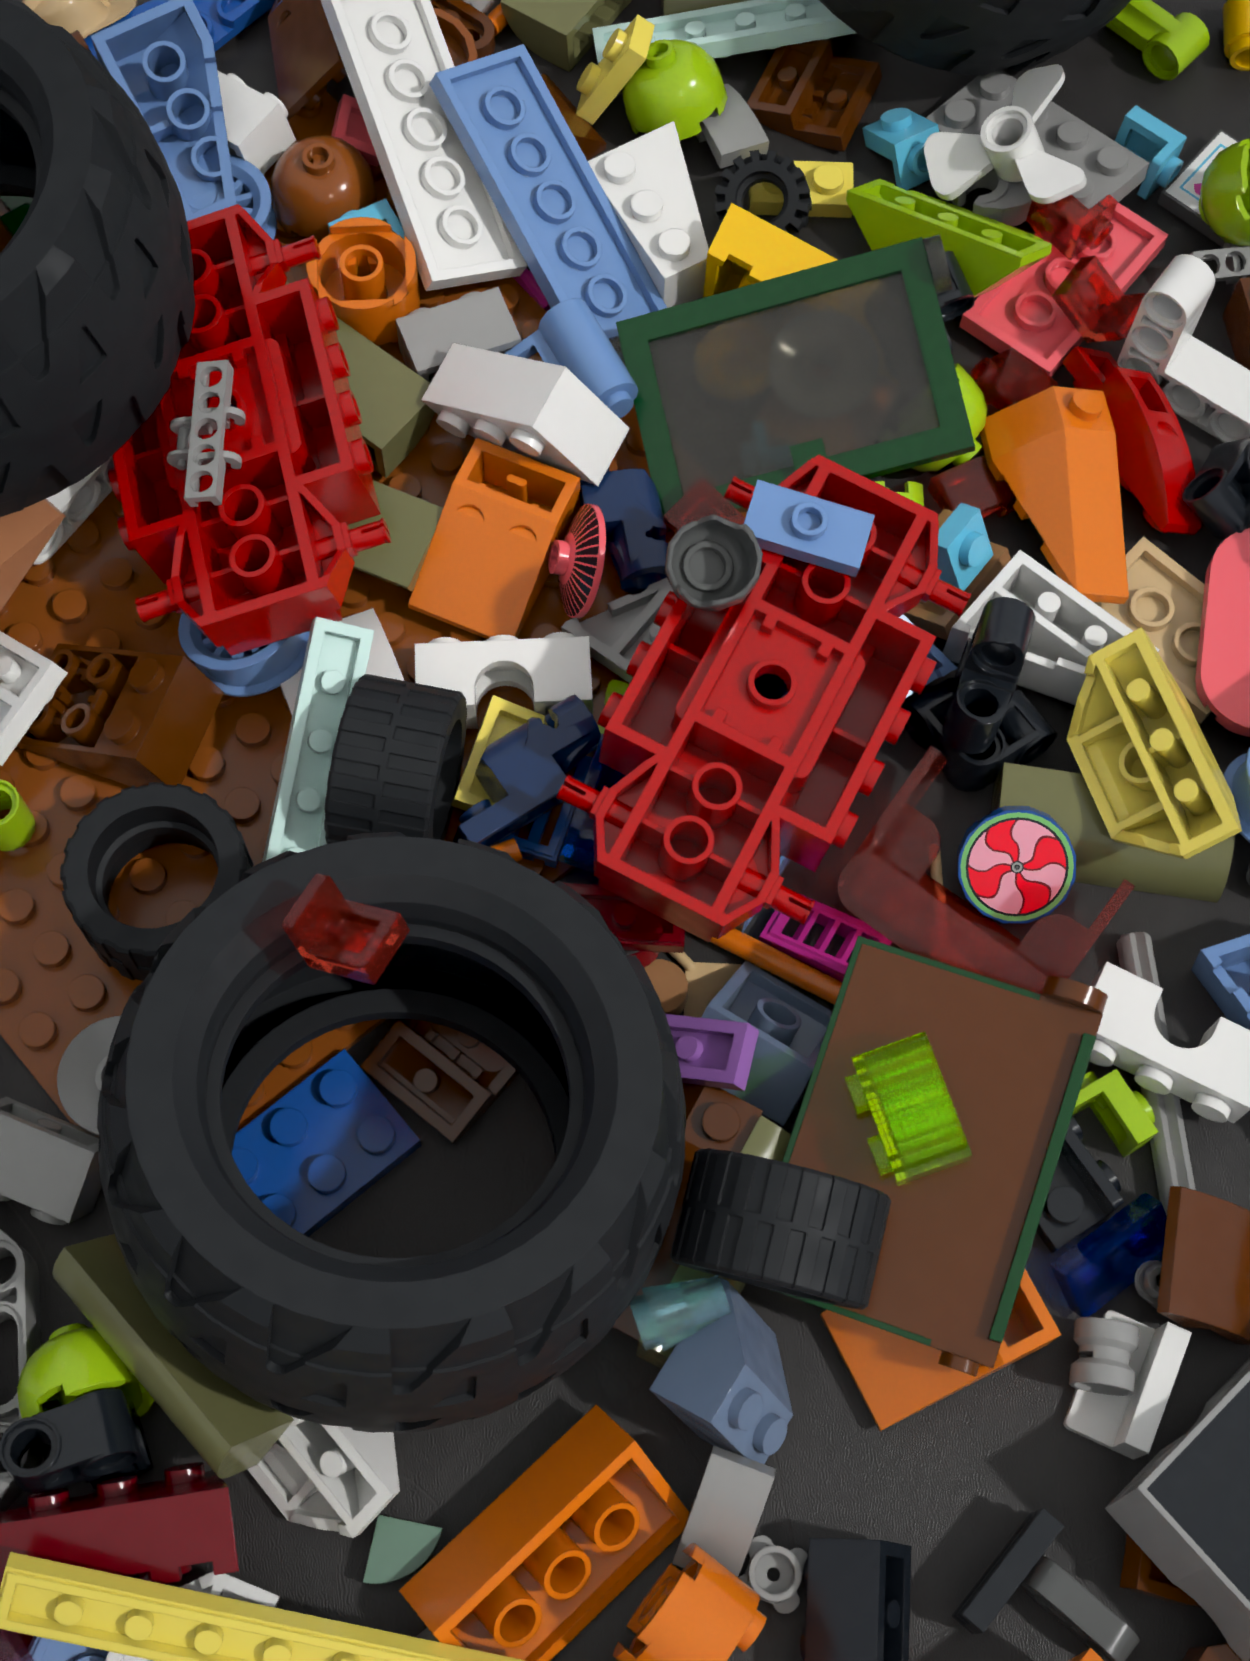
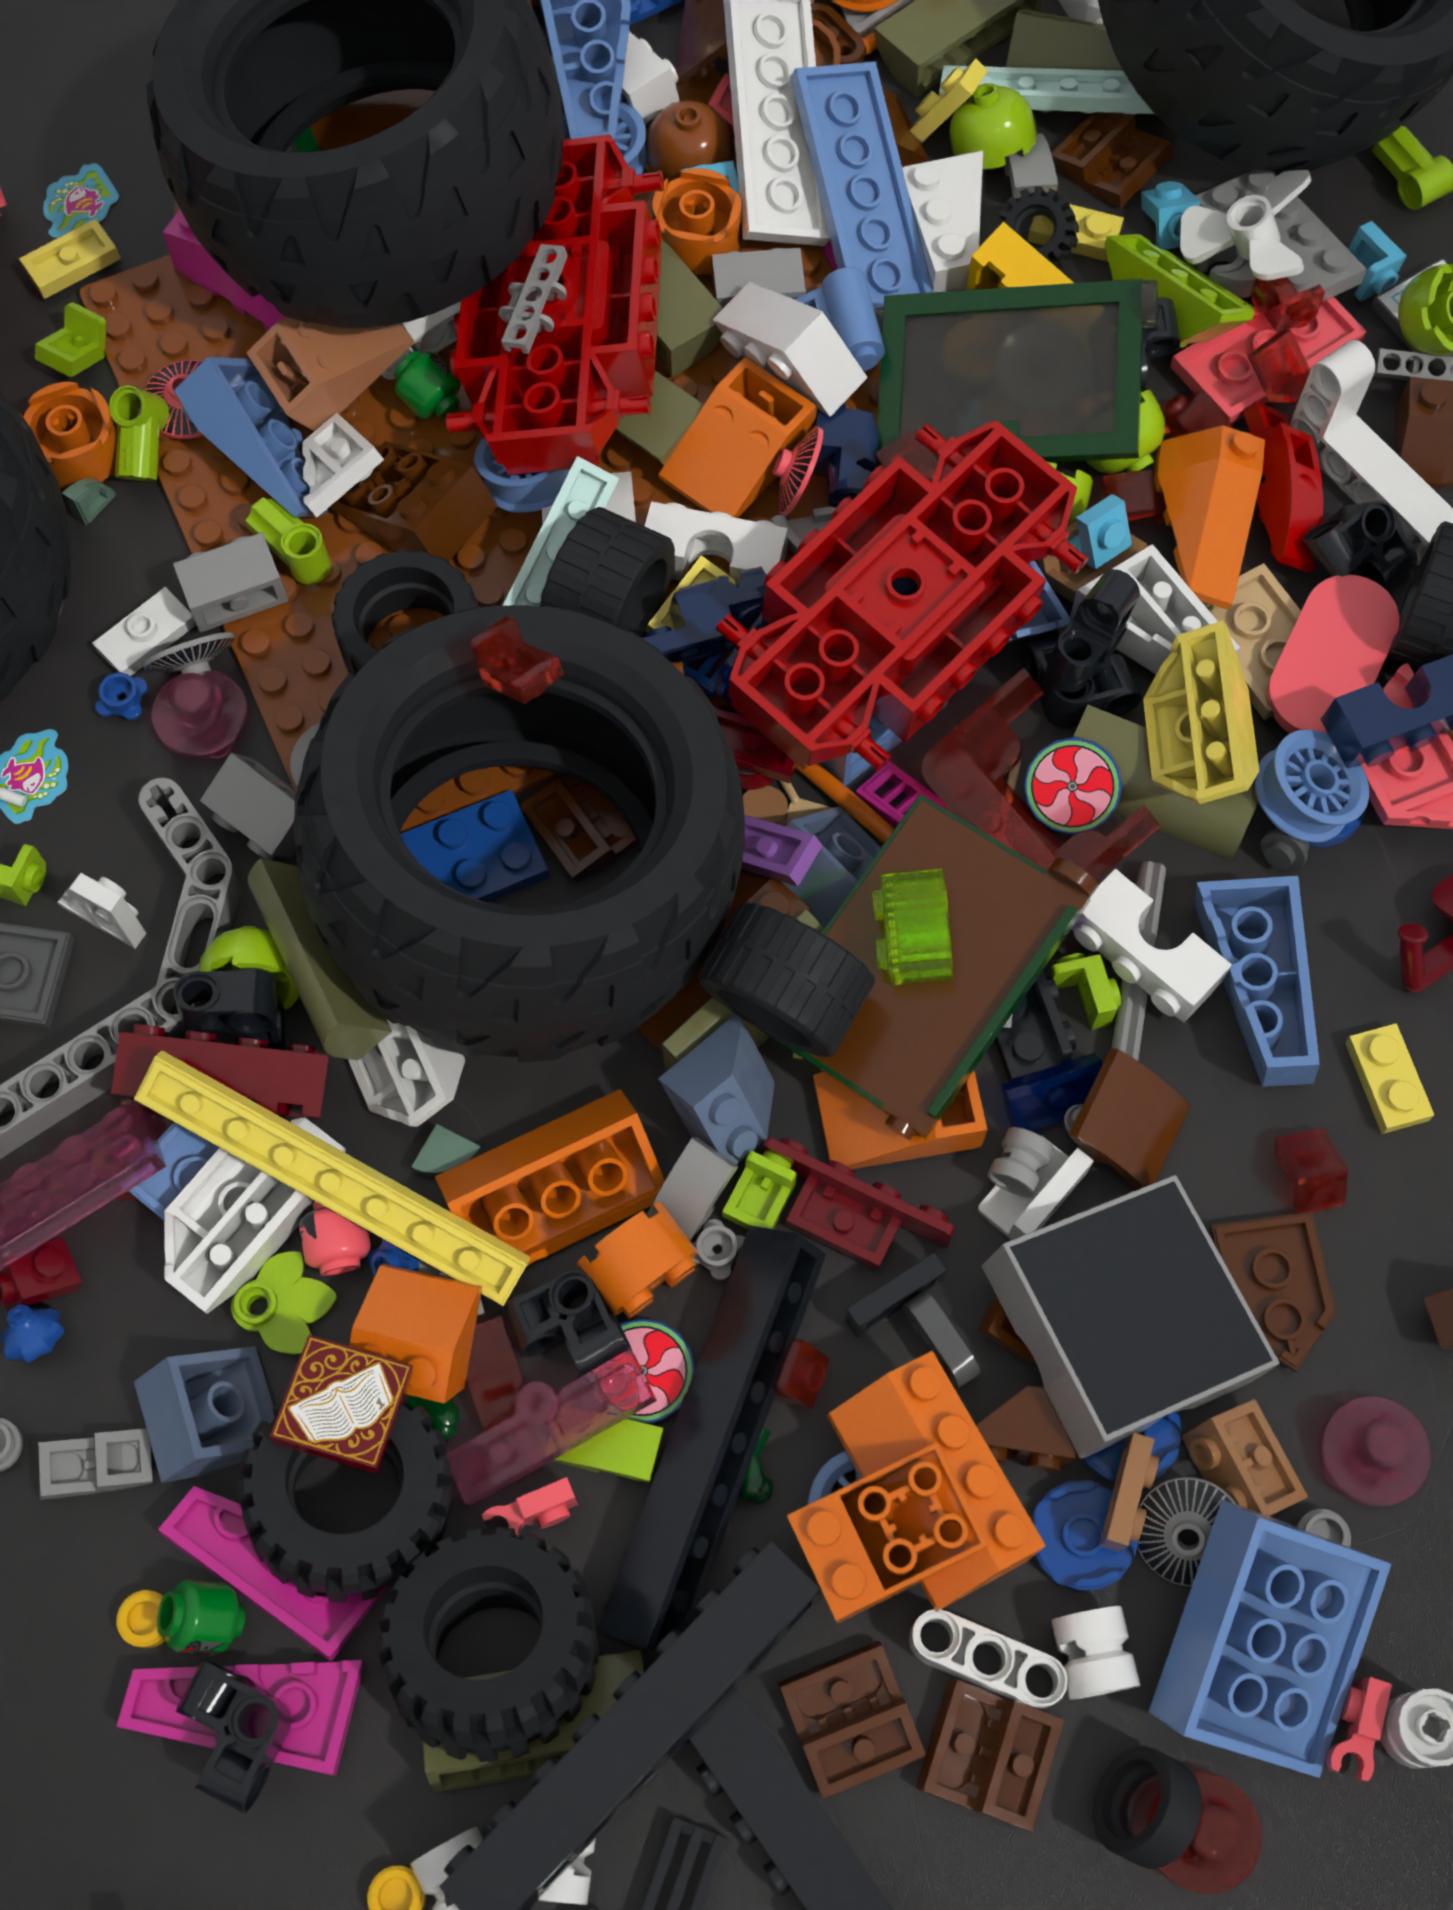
camera: 20 degrees right, 0 degrees up
(92, 562) = (427, 385): none -> green head
(678, 1310) = (694, 1025): clear light blue cone -> none
(713, 563) = (882, 478): dark grey hair -> none
(806, 1488) = (761, 1191): none -> lime bracket
(808, 528) = (967, 472): medium blue plate -> none
(920, 1482) = (851, 1213): none -> dark red bracket

